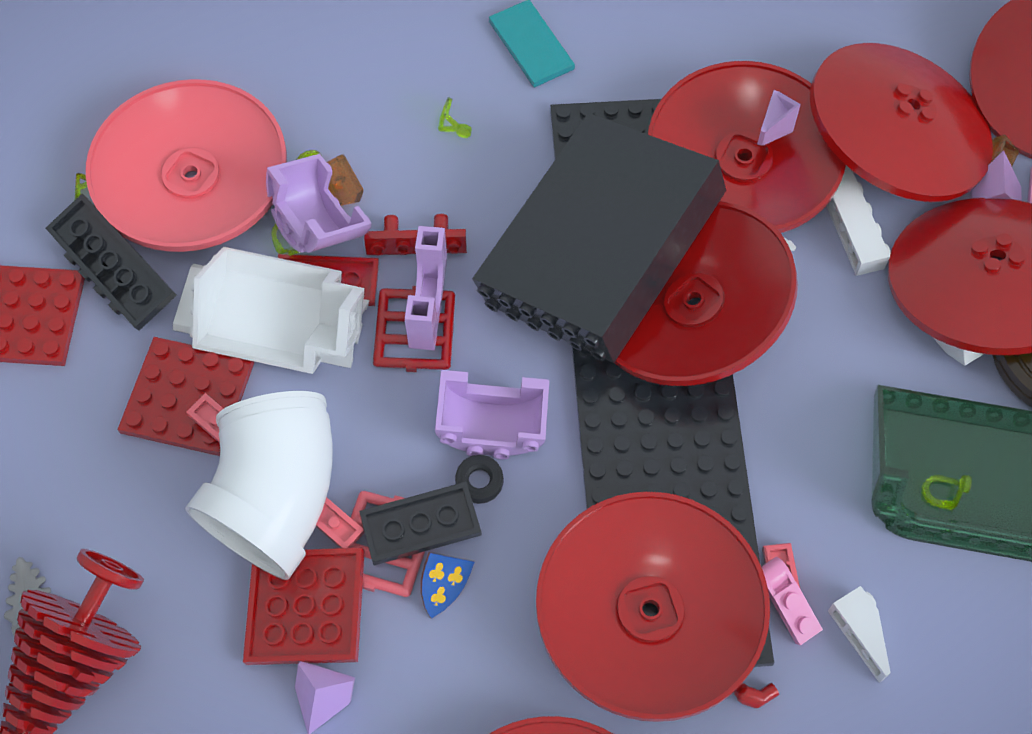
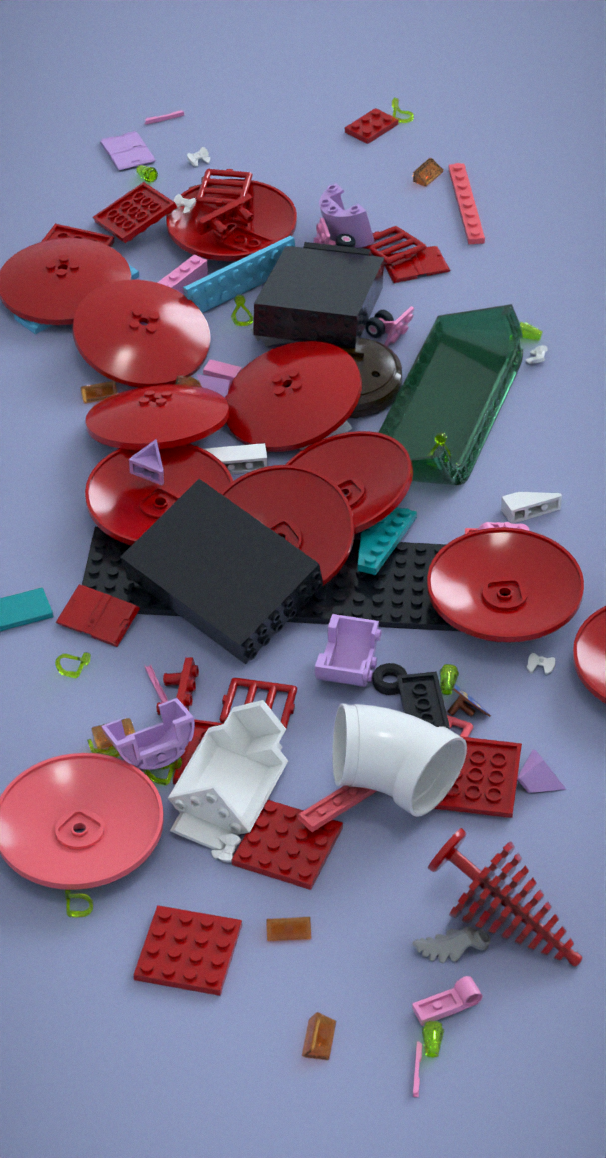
camera: 80 degrees left, 20 degrees down
(56, 415) = (288, 929): none -> clear orange slope
(110, 263) = (159, 878): black plate -> none
(165, 329) = (226, 855): none -> white piece
(424, 308) = (219, 678): lavender arch -> none
(426, 217) = (156, 685): none -> bright pink piece
(487, 552) = (448, 677): none -> clear neon green cone
(534, 128) = (98, 615): none -> red piece
(544, 670) = (547, 663): none -> white piece
(759, 431) = (382, 538): none -> teal wing
(869, 365) = (366, 467): none -> red dish
(950, 56) = (98, 391): none -> clear orange slope

